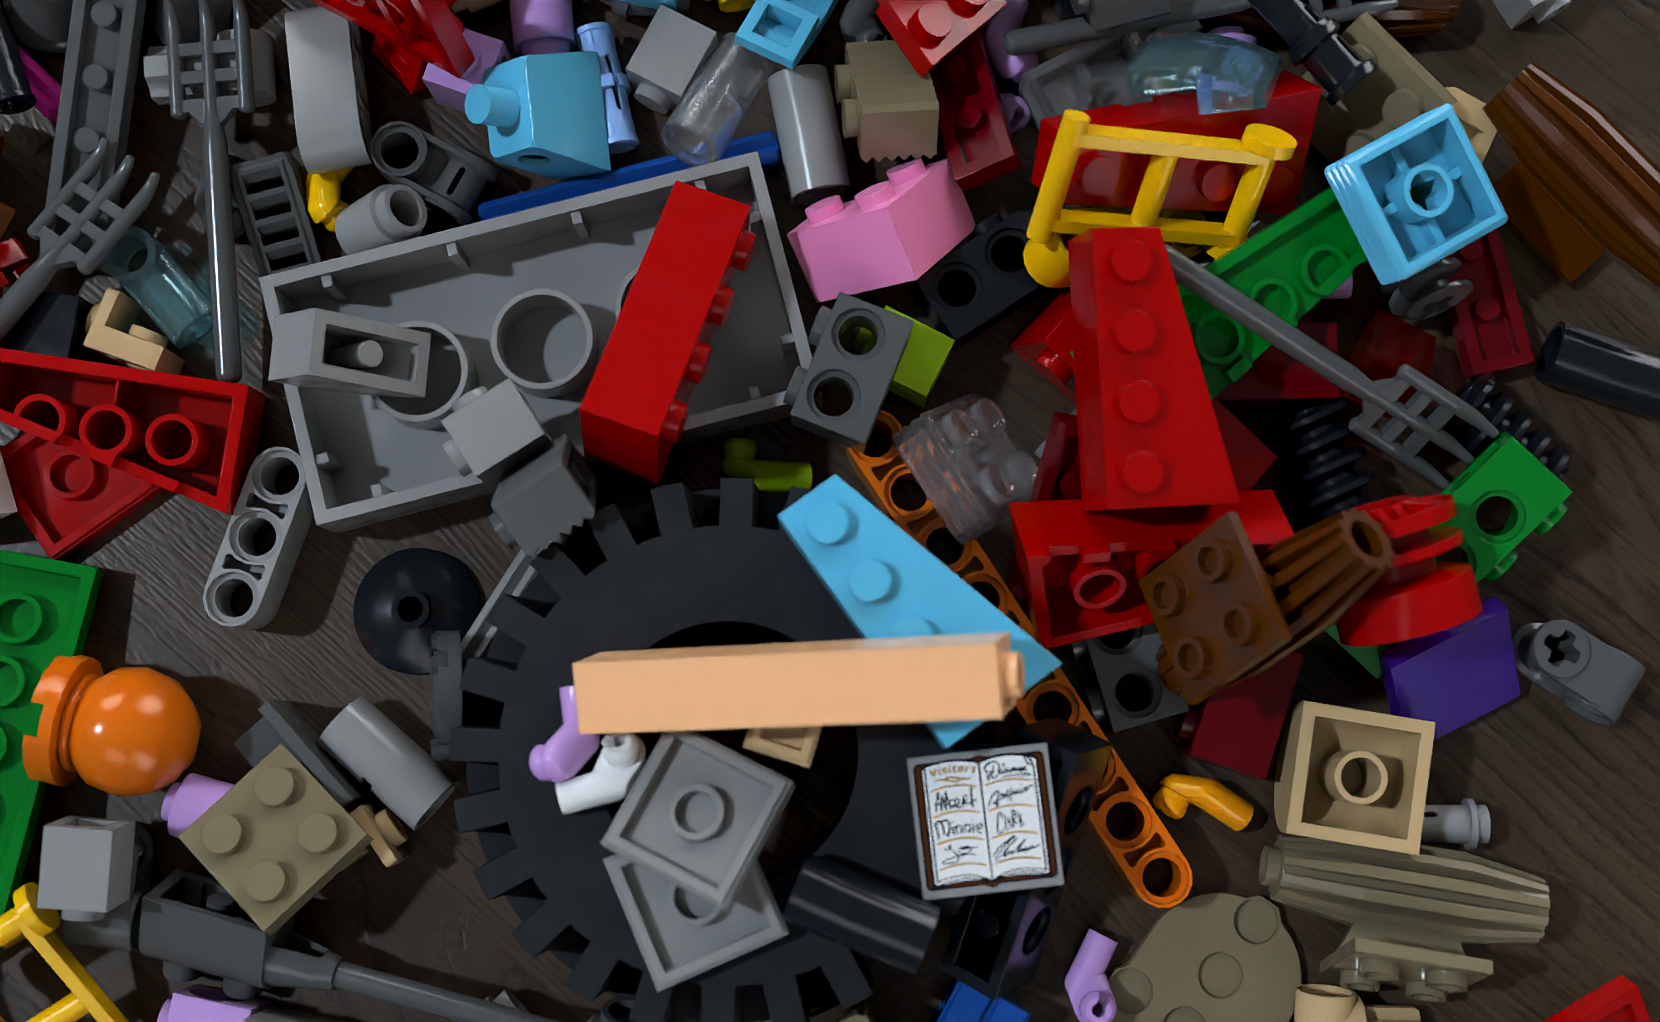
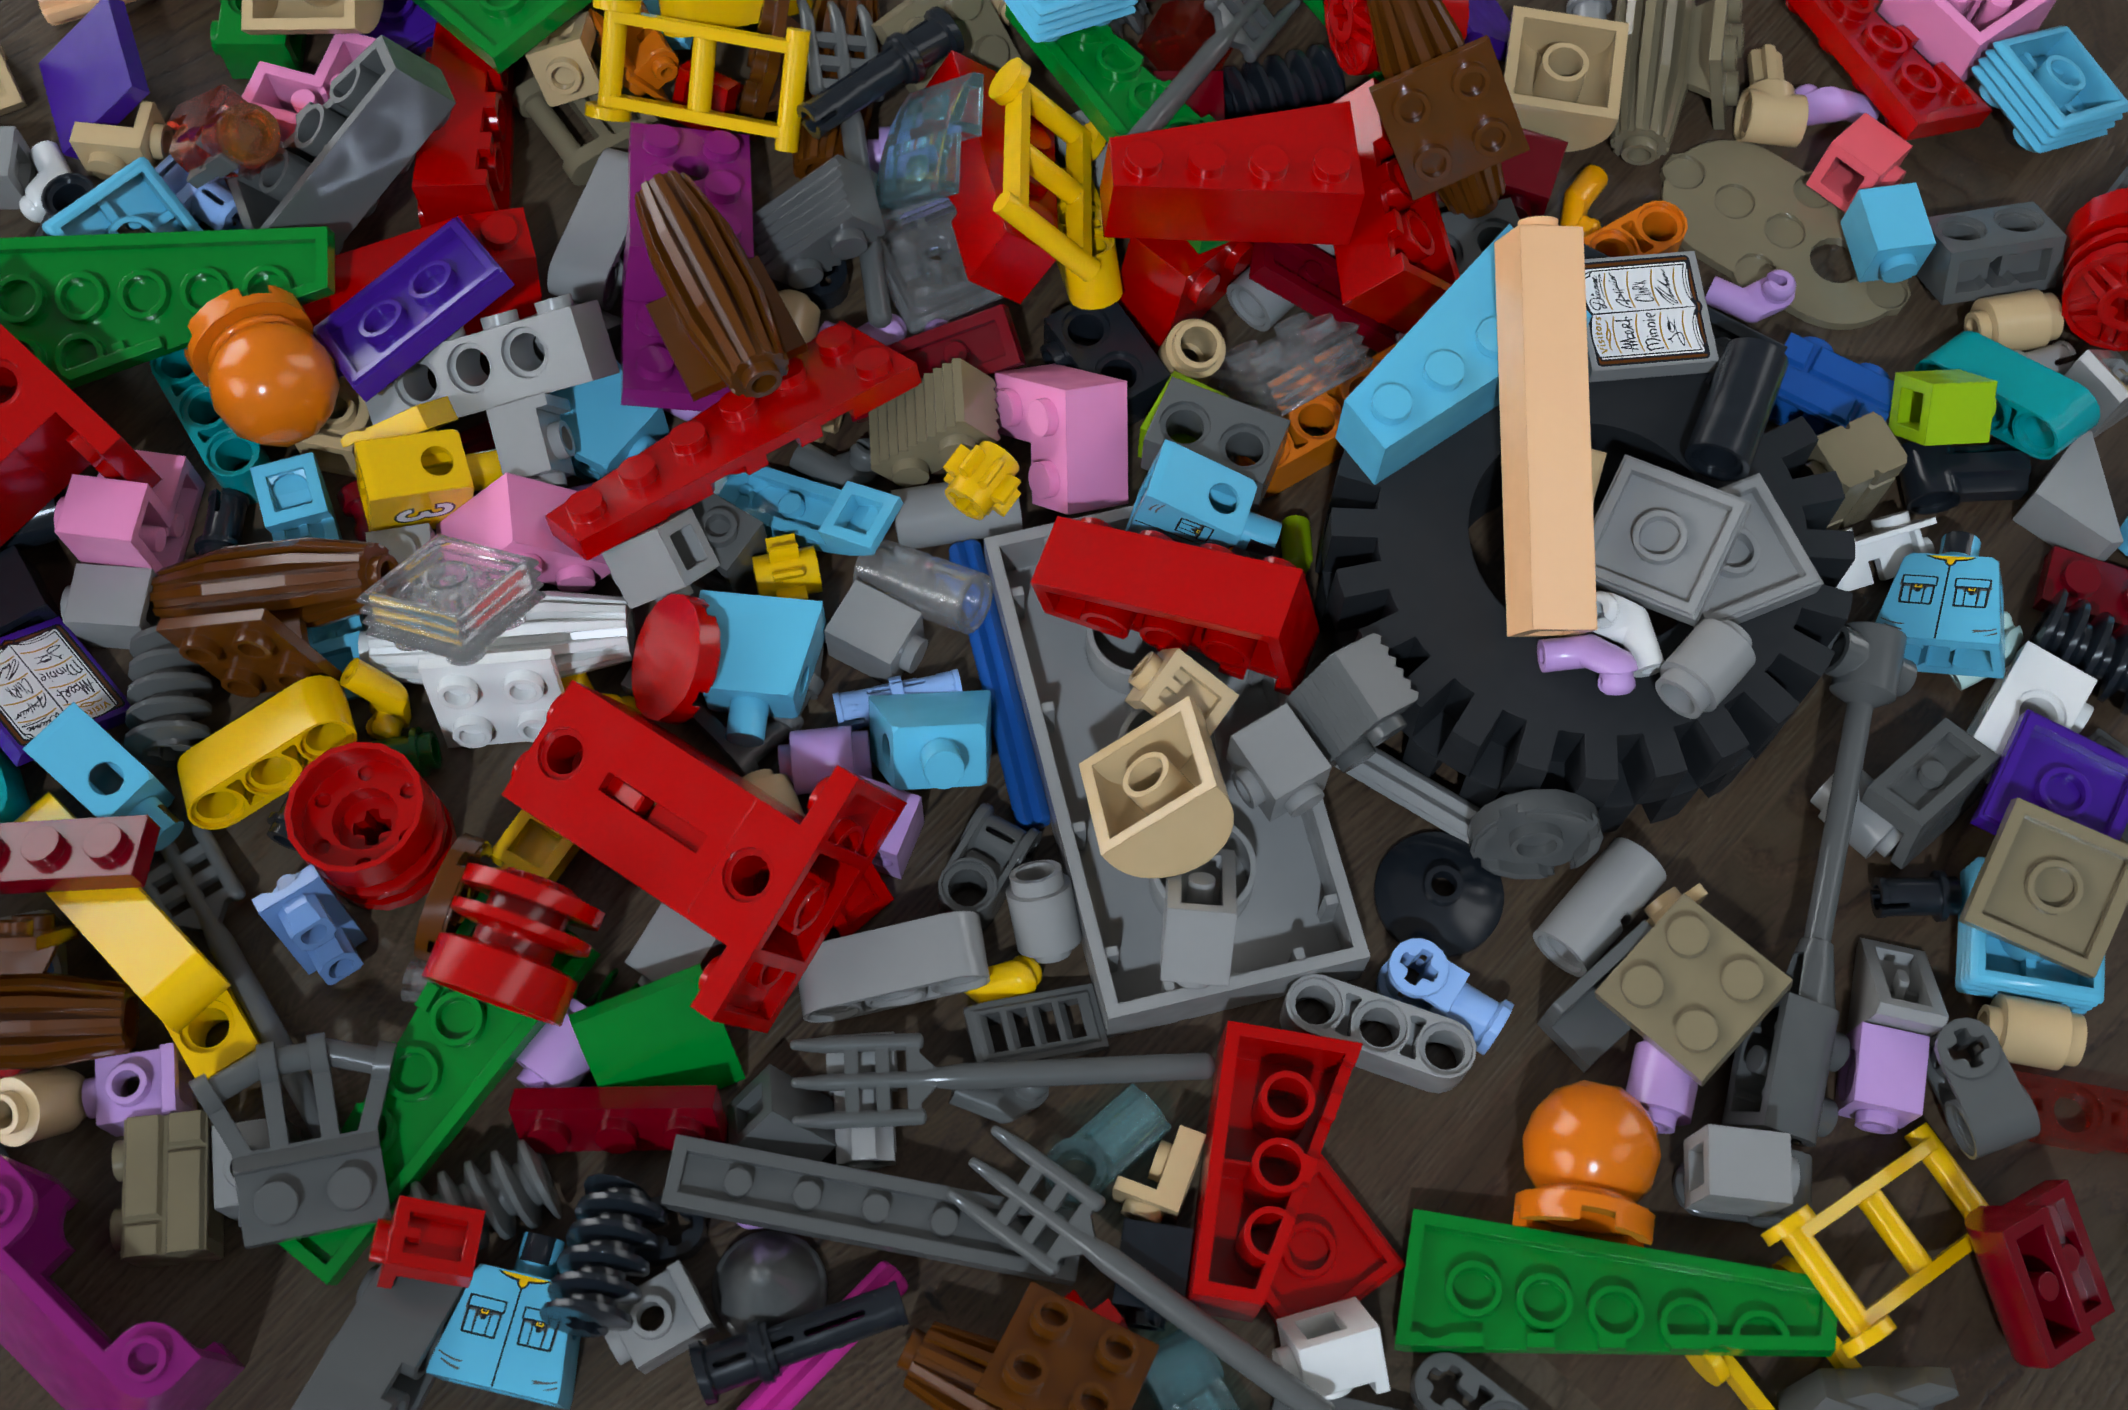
camera: 90 degrees left, 15 degrees down
(301, 604) = (1442, 990): none -> light blue connector
(447, 305) = (1159, 796): none -> tan brick
(554, 853) = (1705, 667): none -> light grey brick
(570, 337) = (1171, 677): none -> tan bracket
(768, 322) = (1201, 504): none -> medium azure torso
(810, 140) = (982, 480): none -> yellow gear
(967, 359) = (1200, 343): none -> tan brick

